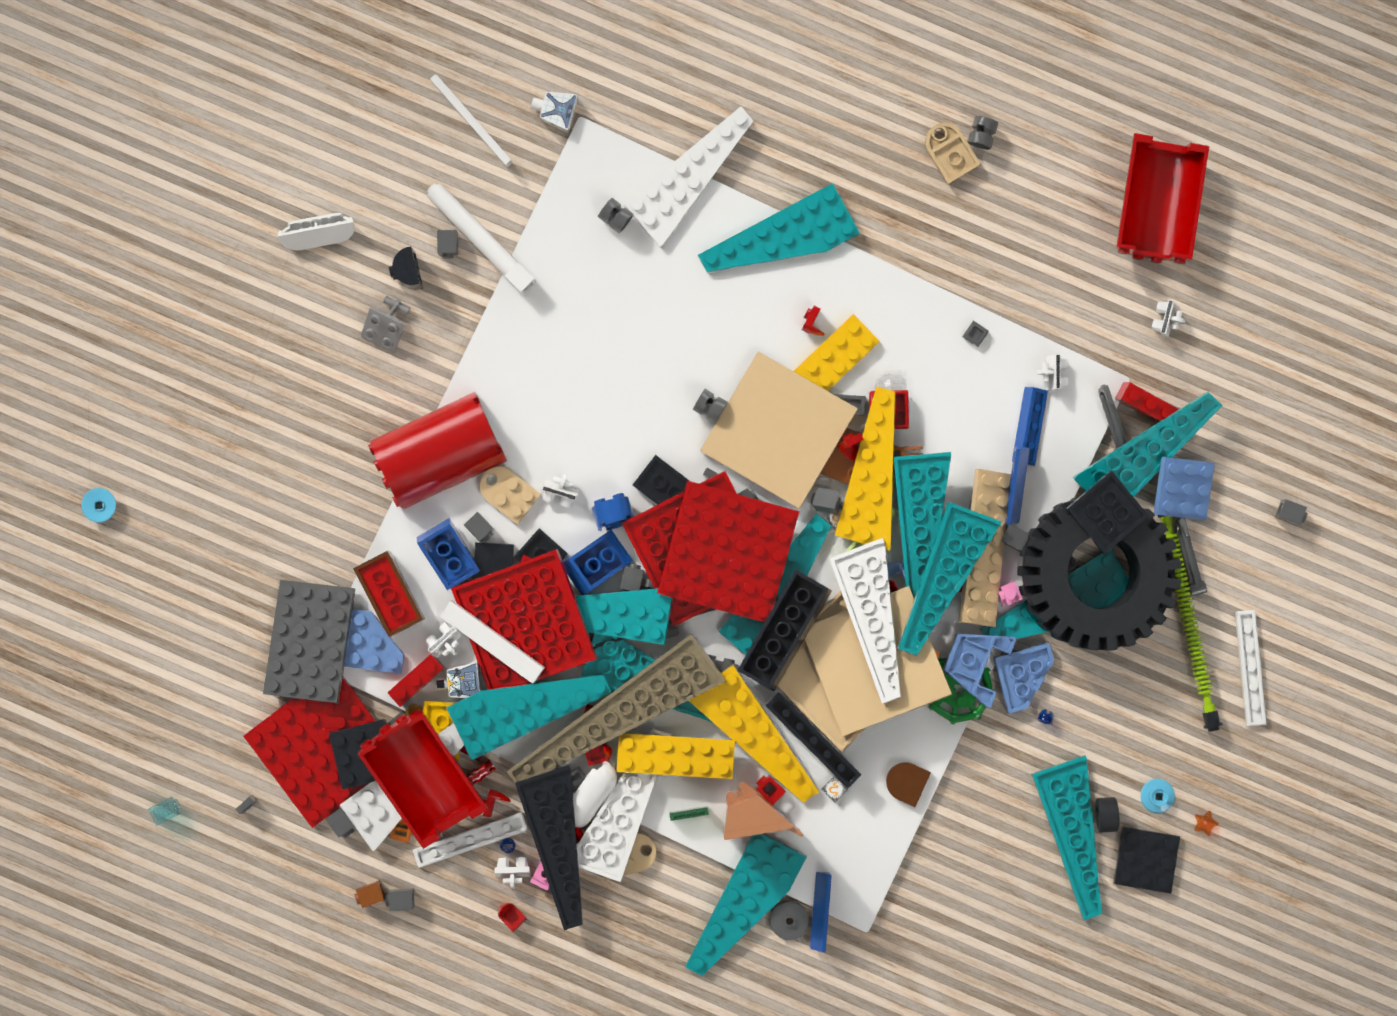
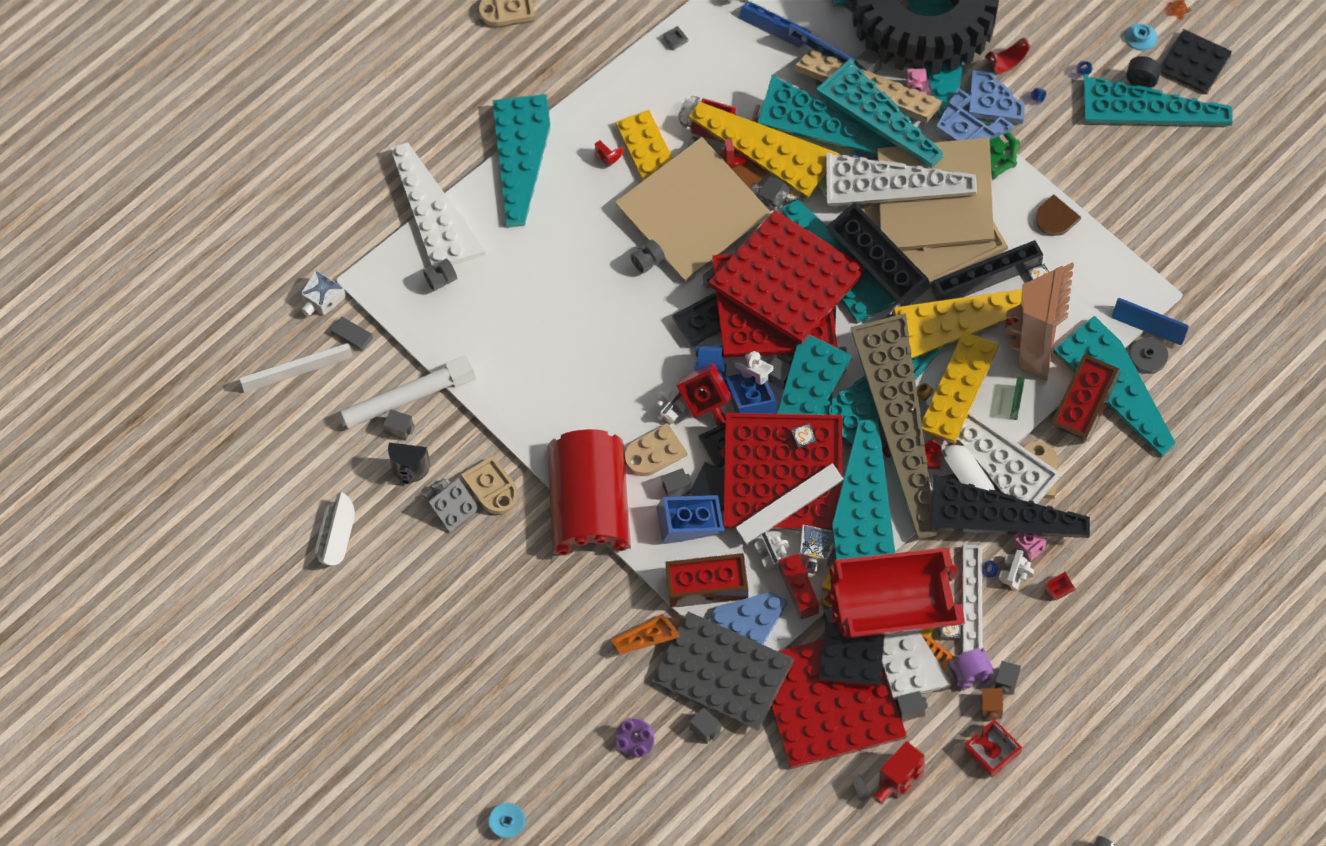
camera: 65 degrees left, 25 degrees down
(216, 587) = (626, 734): none -> medium lavender plate
(253, 645) = (705, 726): none -> dark grey brick
(267, 836) = (900, 772): none -> red brick
(320, 558) = (647, 634): none -> orange wing
(322, 918) = (993, 737): none -> red piece
(394, 865) = (971, 667): none -> medium lavender brick
(419, 354) = (491, 484): none -> tan plate
(529, 156) = (351, 333): none -> dark grey tile
(559, 631) = (803, 436): none -> tile
(575, 519) = (699, 400): none -> red brick
(623, 555) = (753, 366): none -> white hips
(663, 718) = (924, 391): none -> pearl gold plate
(709, 879) = (1086, 397): none -> red brick
(1078, 671) = (1009, 57): none -> red piece
(1094, 752) = (1086, 70): none -> clear blue hinge

